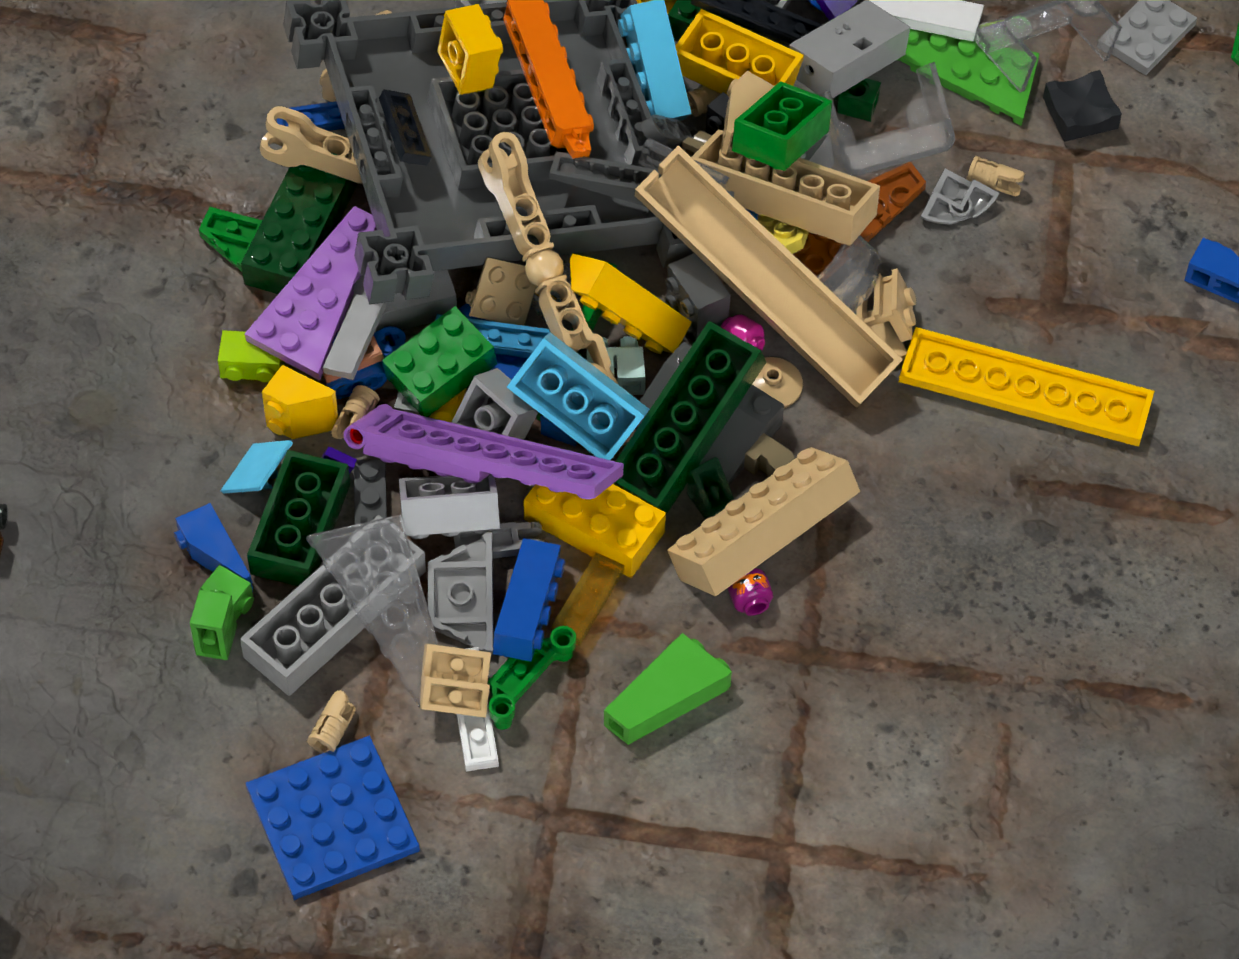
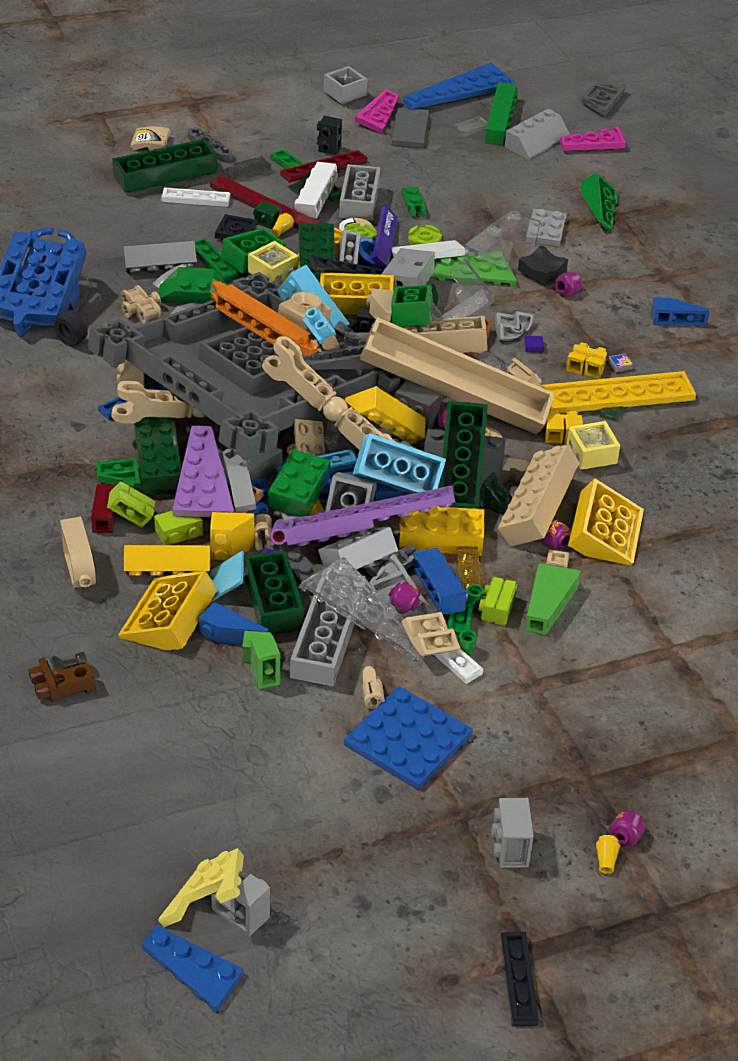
camera: 30 degrees left, 15 degrees down
(87, 350) = (77, 552): none -> tan window
(154, 487) = (169, 610): none -> yellow slope
(175, 286) = (102, 517): none -> dark red brick
(201, 402) = (166, 558): none -> yellow slope
(204, 298) = (131, 504): none -> lime brick
(405, 127) = (205, 368): black plate -> none
(458, 607) = (405, 597): none -> magenta head
(469, 49) = (217, 317): yellow brick -> none
(592, 665) = (498, 601): none -> lime brick
(611, 127) = (322, 332): none -> medium azure hips
(616, 82) = (301, 302): none -> tan piece
(727, 634) = (557, 558): none -> tan tile
(835, 609) = (606, 525): none -> yellow slope
(895, 415) = (559, 424): none -> yellow hips
(910, 466) = (593, 445): none -> light yellow piece
(966, 245) = (533, 343): none -> dark purple tile
(994, 418) = (611, 413): none -> clear green tile
(996, 176) = (522, 306): tan hinge -> none
(1020, 310) = (586, 360): none -> yellow hips
(1074, 332) = (620, 363): none -> tile
(1097, 157) = (568, 284): none -> magenta head

